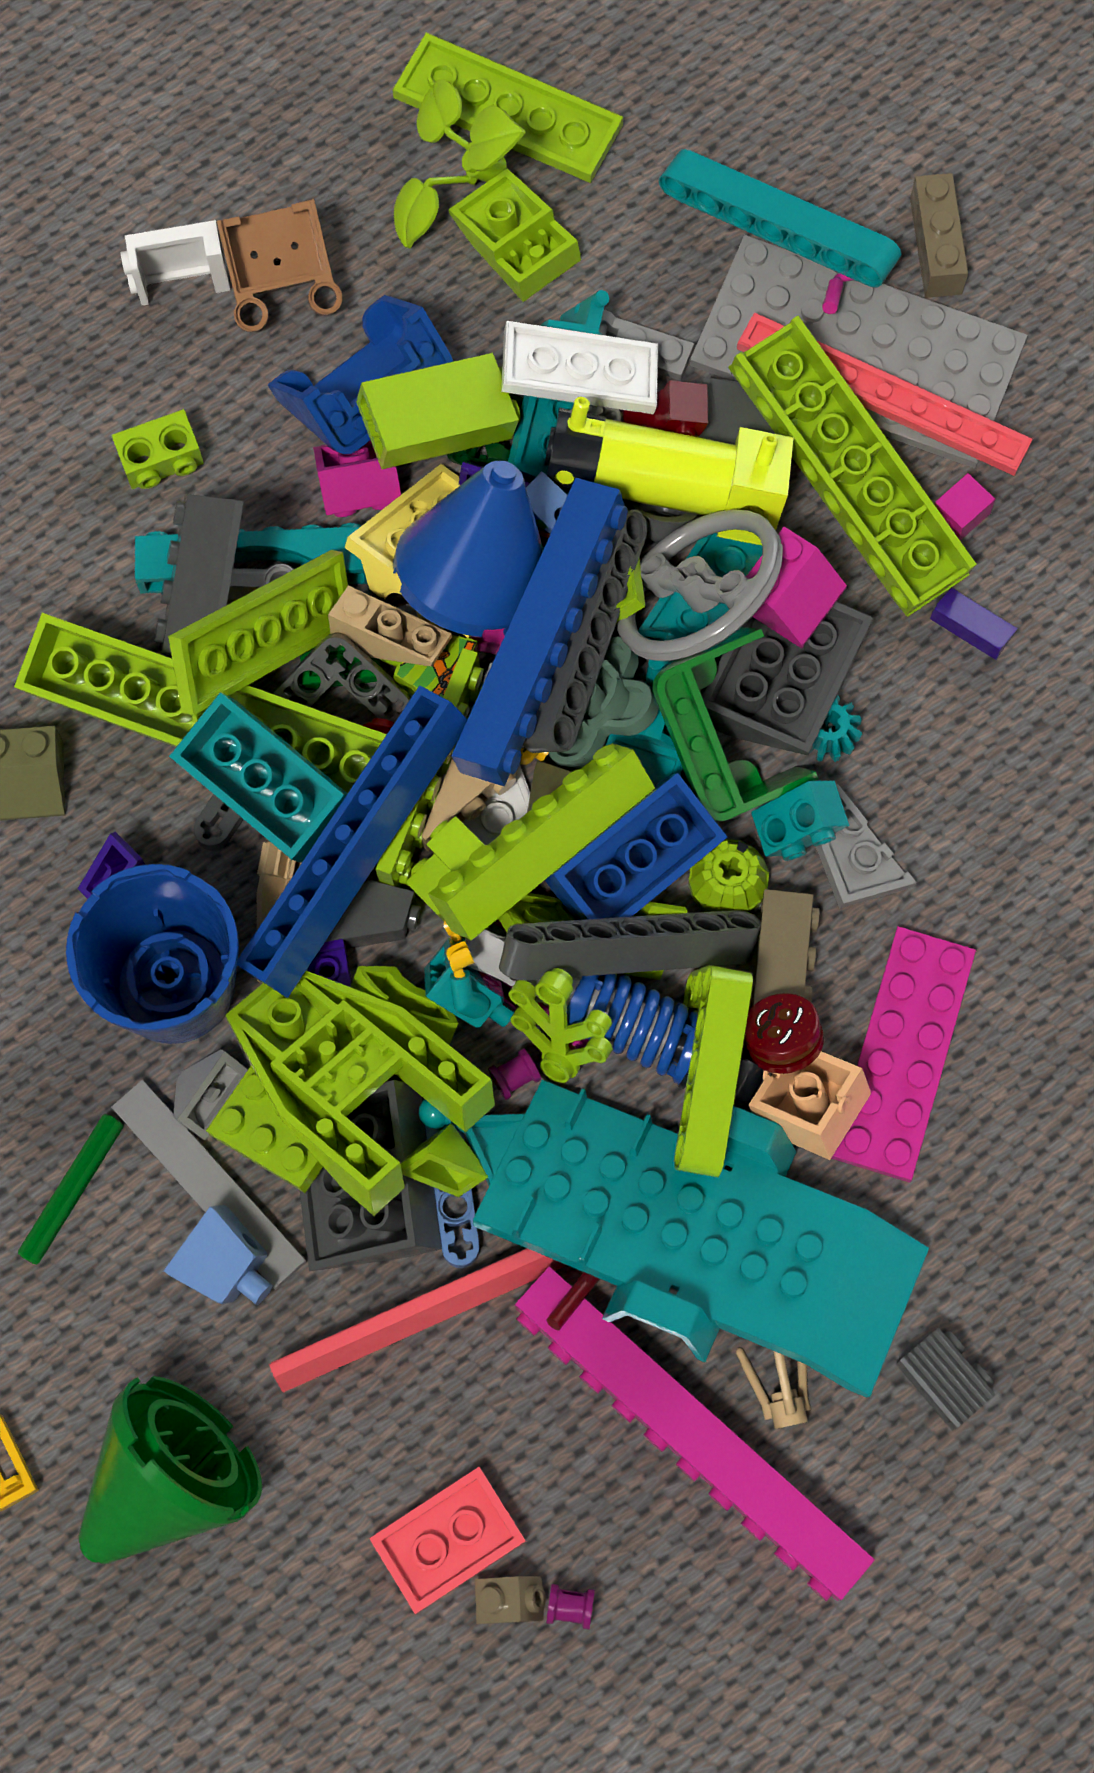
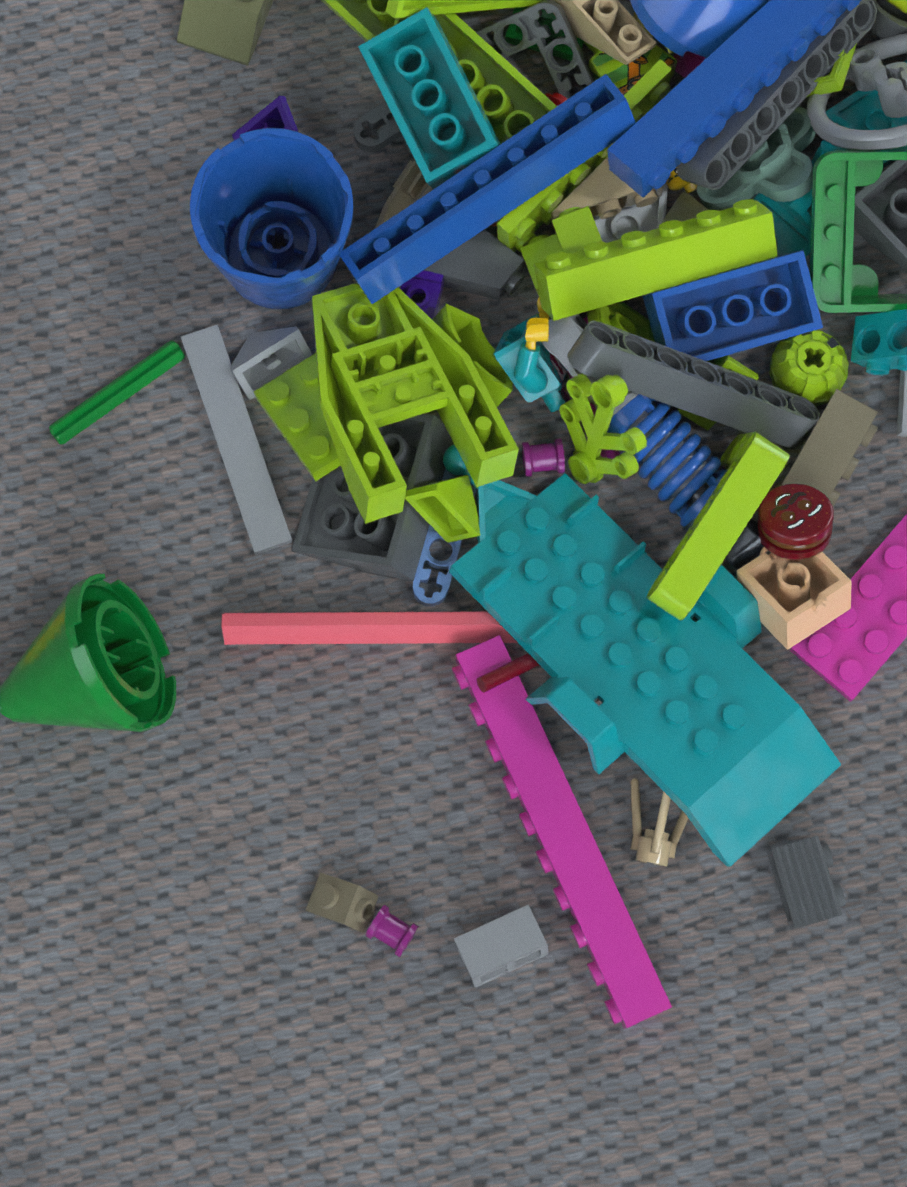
camera: 20 degrees right, 5 degrees up
(221, 1259) = (219, 506): medium blue torso -> none
(447, 1540) = (311, 829): coral plate -> none
(683, 1573) = (501, 946): none -> light grey hinge

